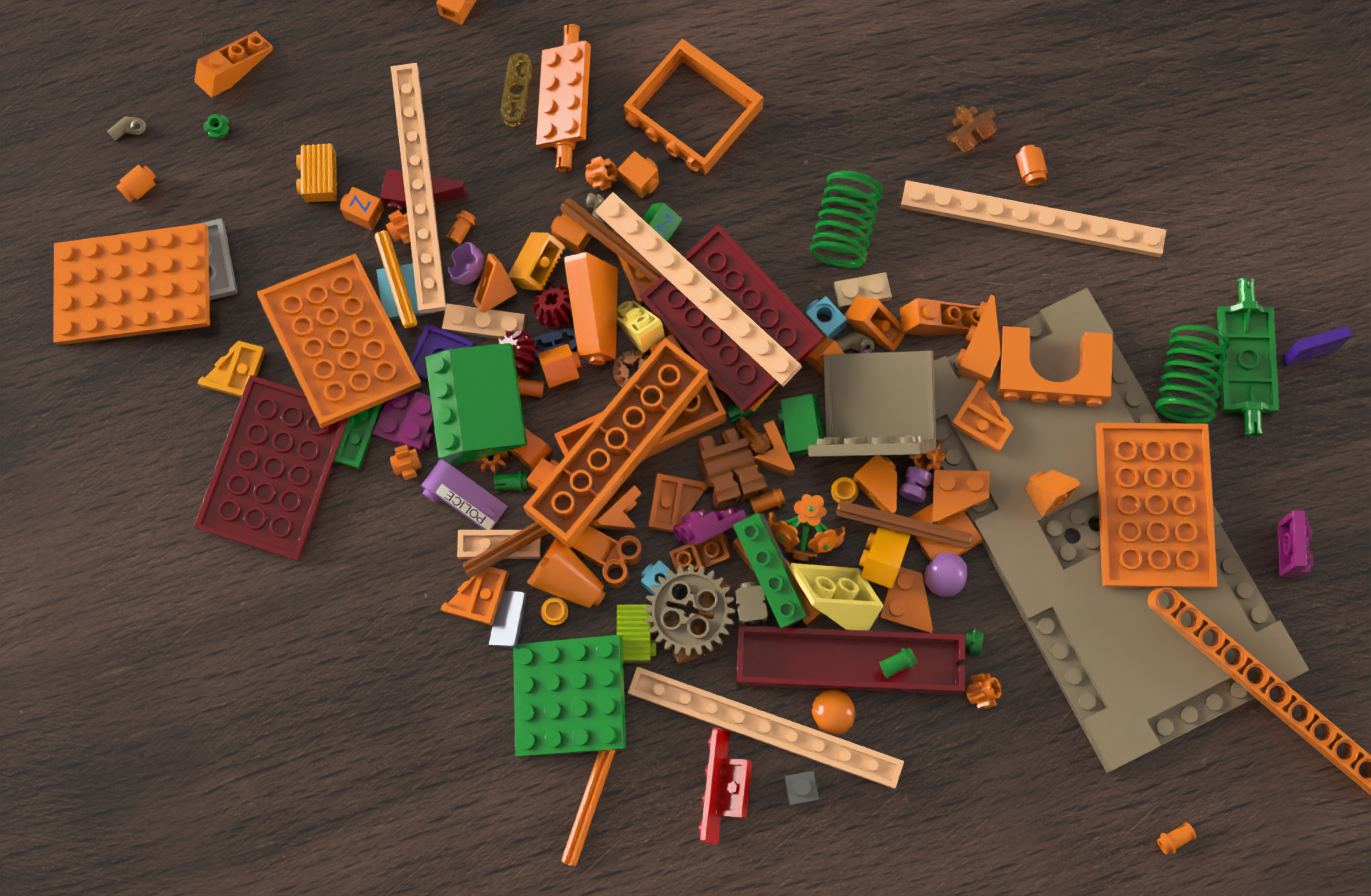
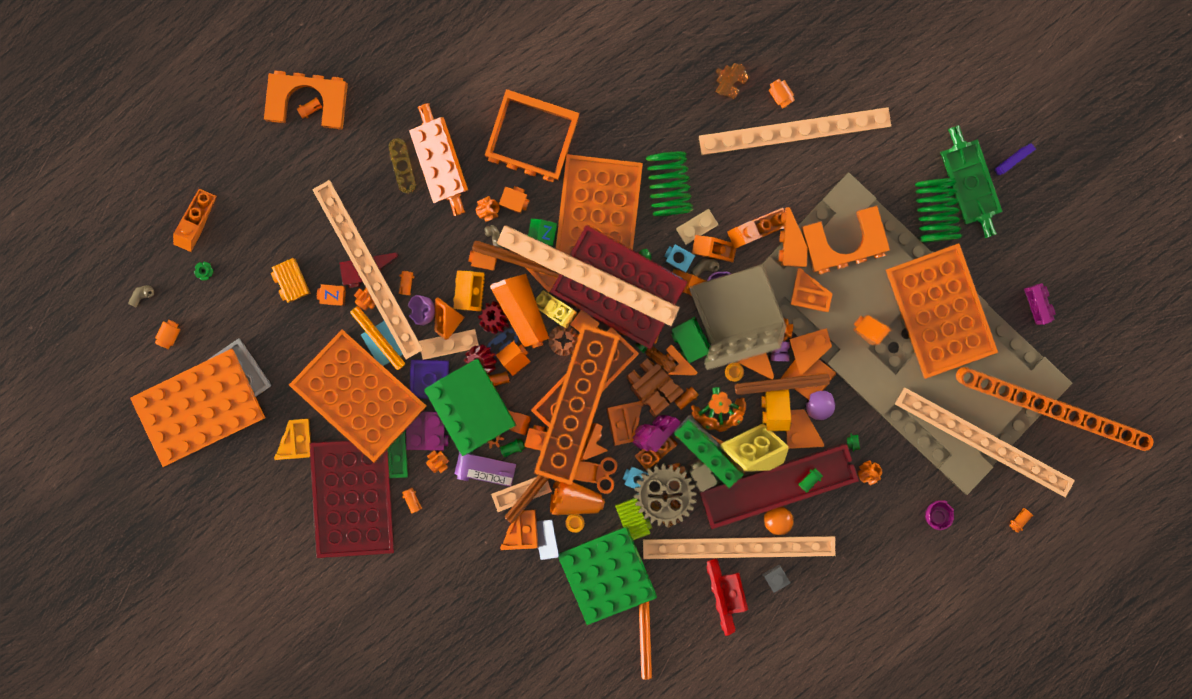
camera: 20 degrees left, 15 degrees up
(351, 501) = (411, 500): none -> orange pin
(755, 206) = (600, 195): none -> orange plate
(1062, 786) = (939, 515): none -> magenta hair
(1162, 706) = (984, 442): none -> light nougat plate

